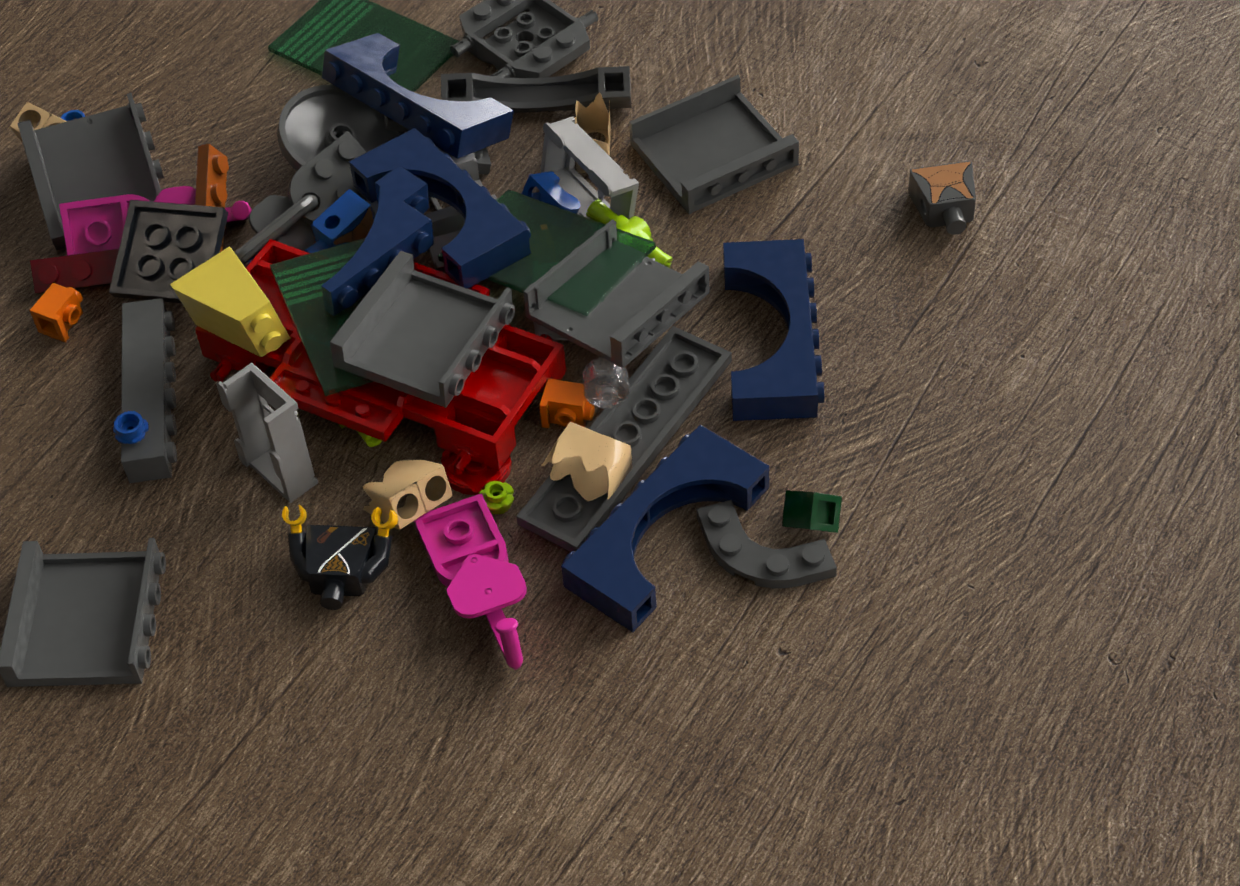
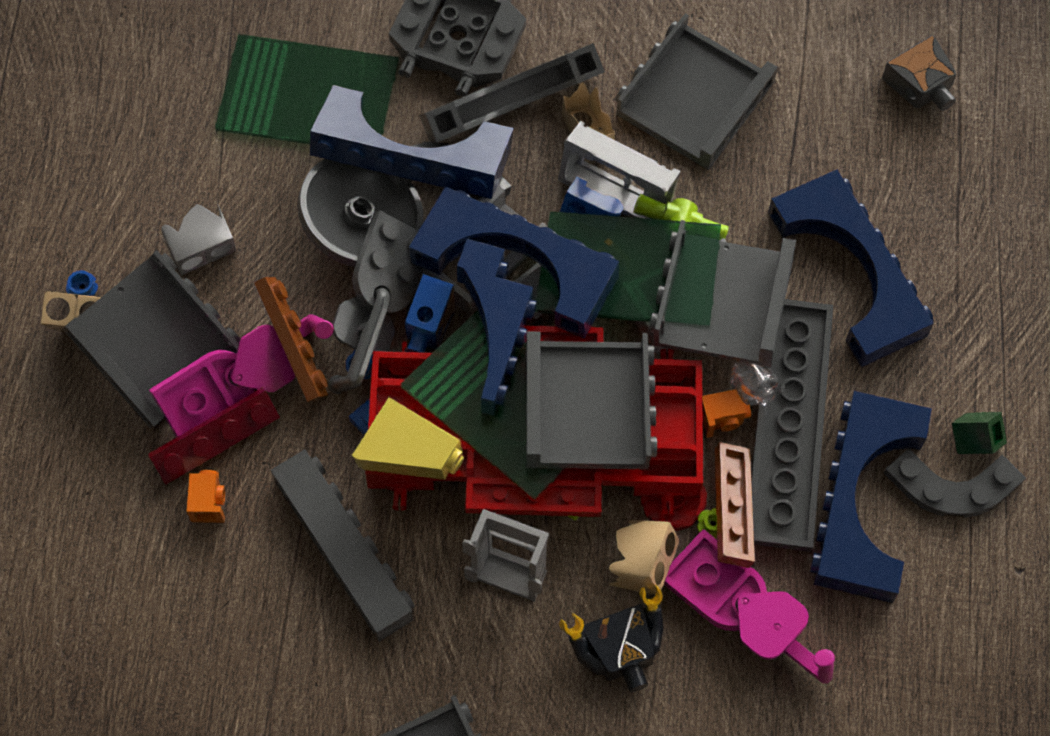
camera: 30 degrees left, 15 degrees up
(130, 427) = (369, 590): blue plate -> none
(163, 245) = (286, 401): black plate -> none
(192, 119) = (200, 239): none -> light grey piece
(515, 484) = (734, 505): none -> plate
(592, 460) = (786, 465): tan piece -> none

